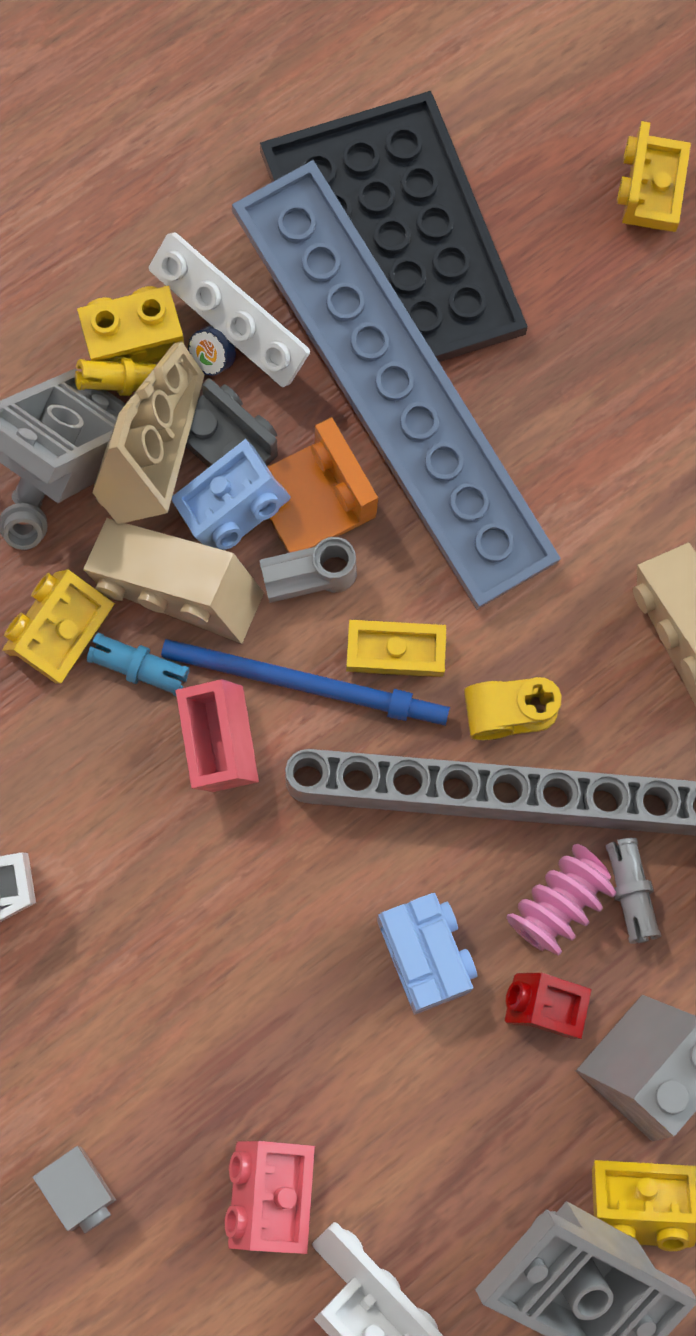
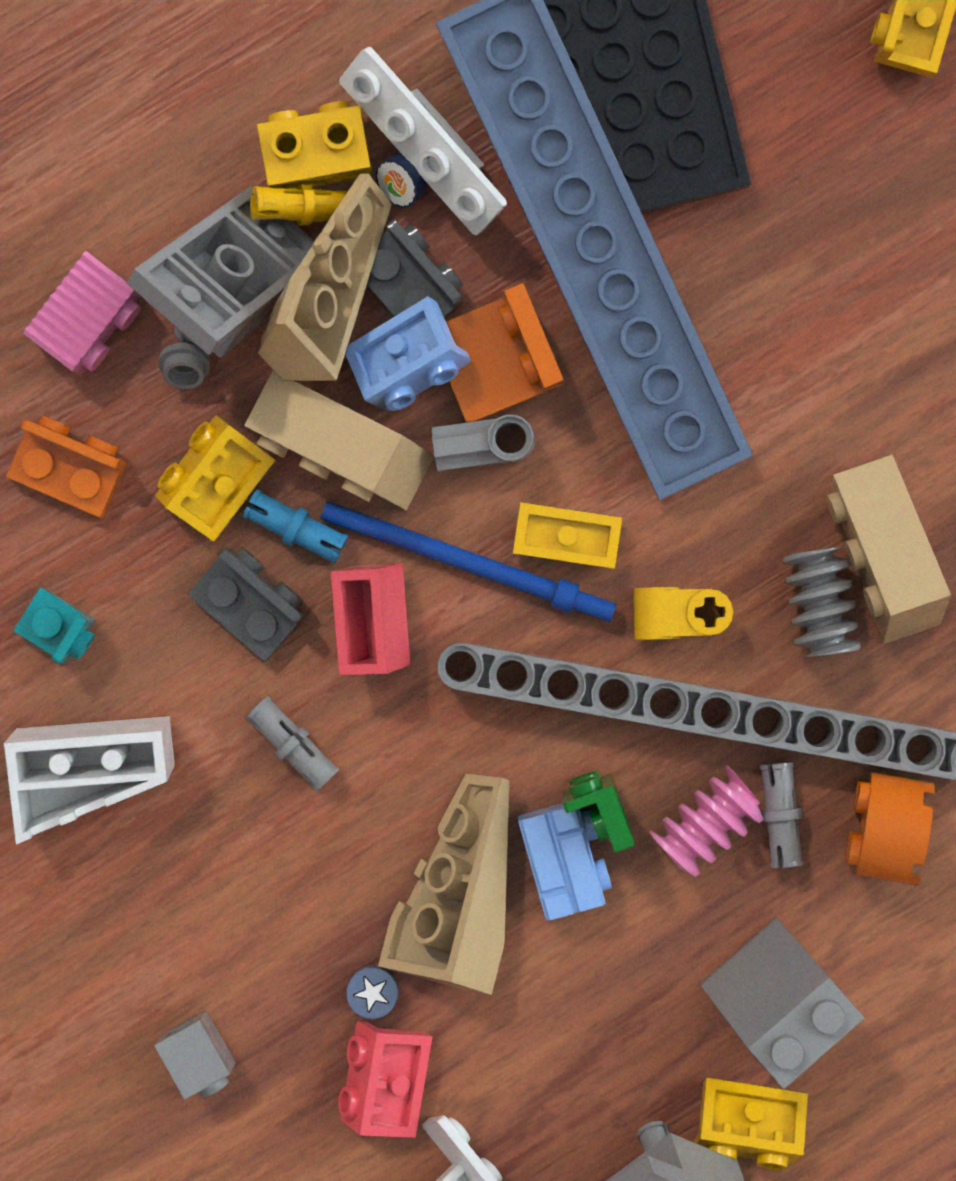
camera: 15 degrees right, 15 degrees up
(98, 737) = (248, 603): none -> dark grey bracket
(150, 868) = (292, 743): none -> light grey pin
(249, 1108) = (372, 992): none -> sand blue tile
(328, 1016) = (457, 909): none -> tan wedge
(465, 894) = (607, 813): none -> green bracket
(547, 1004) = (679, 921): red bracket -> none
(640, 682) = (821, 602): none -> light grey piece

